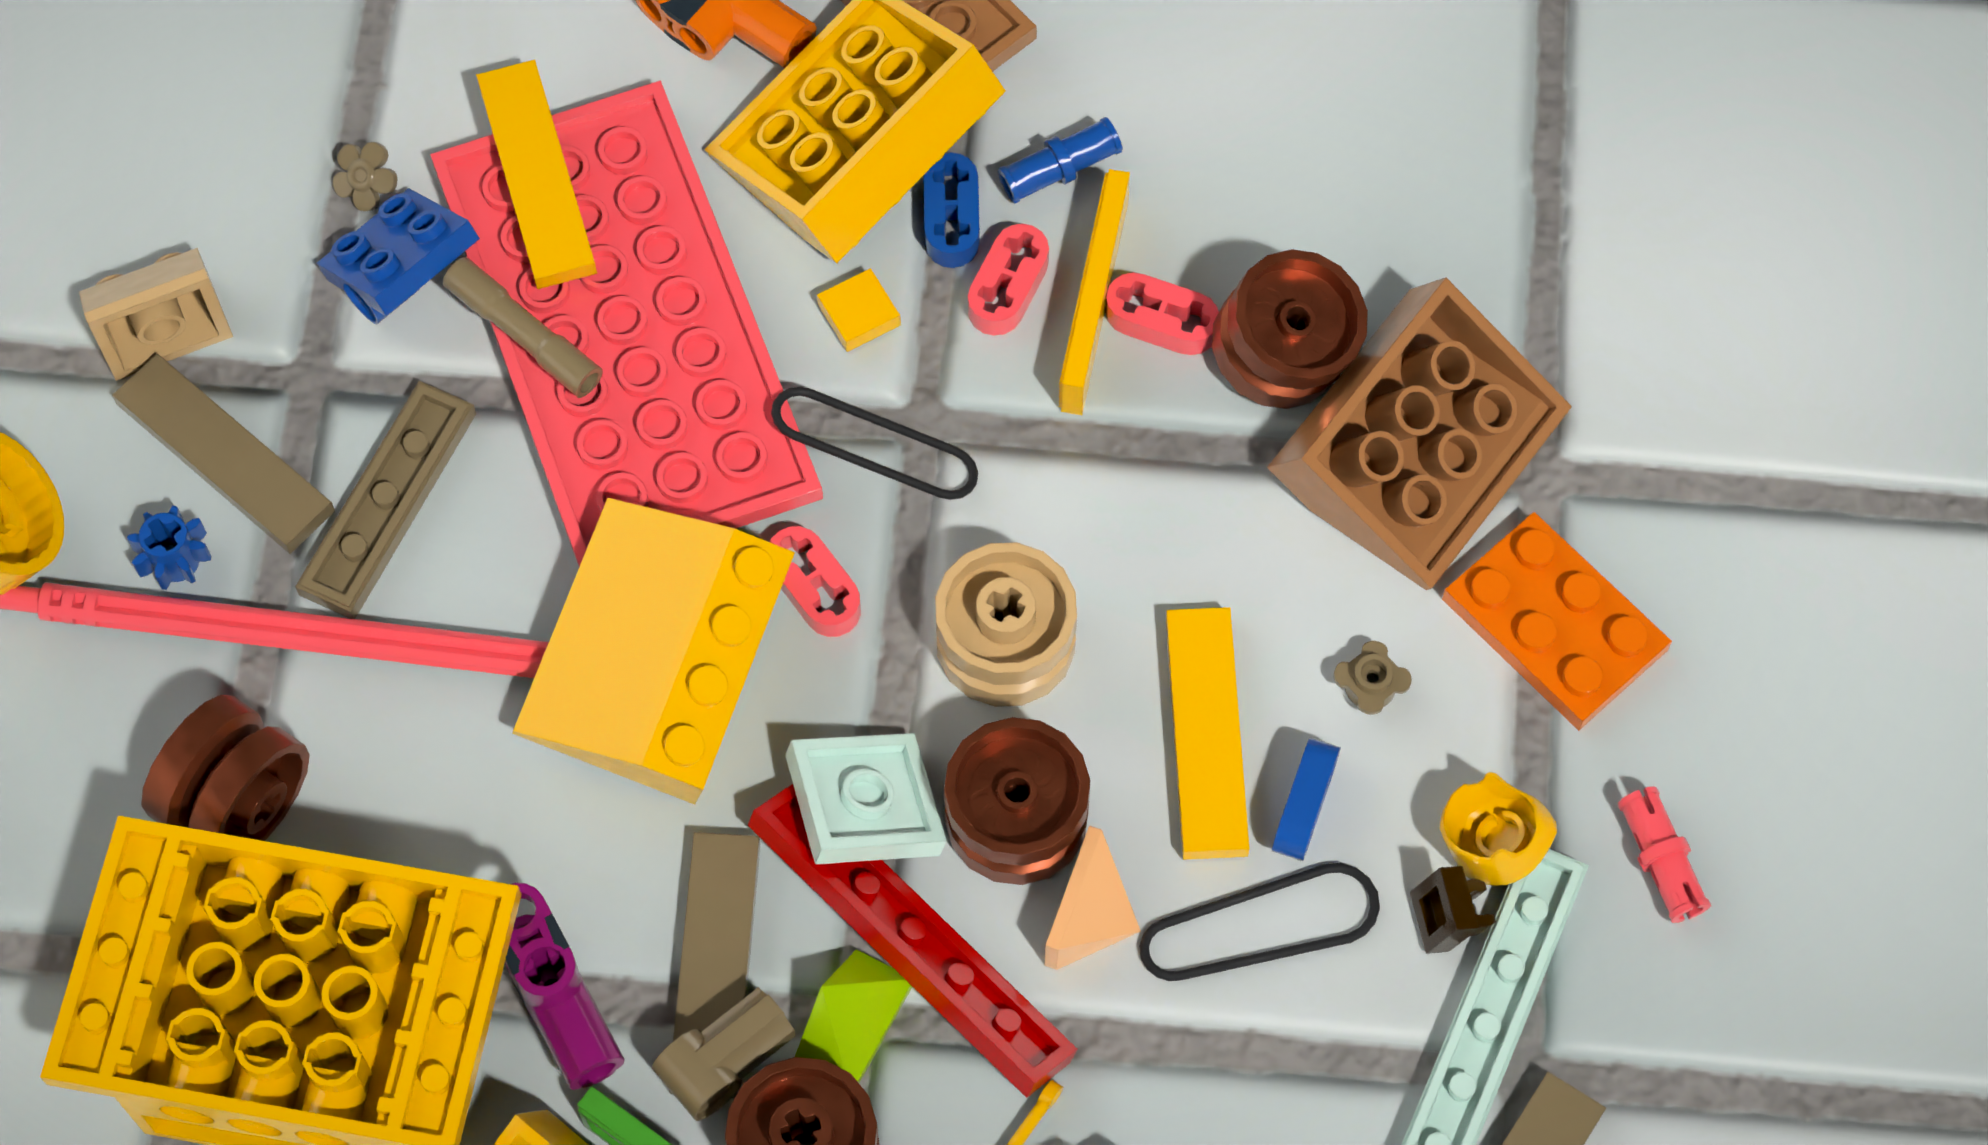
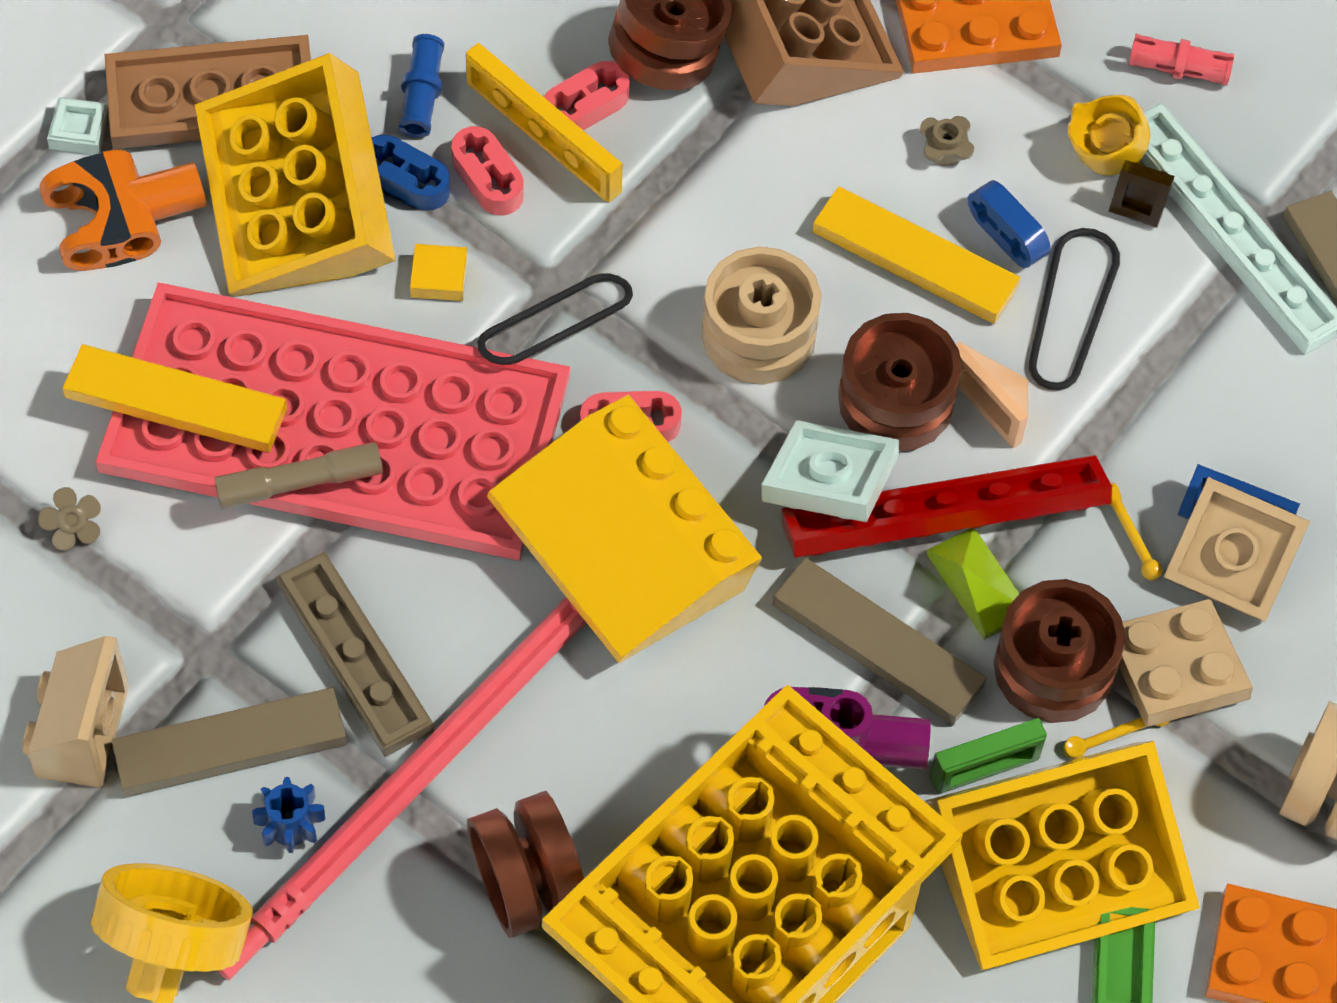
camera: 60 degrees left, 5 degrees down
(396, 253) = (164, 528): blue plate -> none
(709, 1065) = (964, 671): dark tan piece -> none

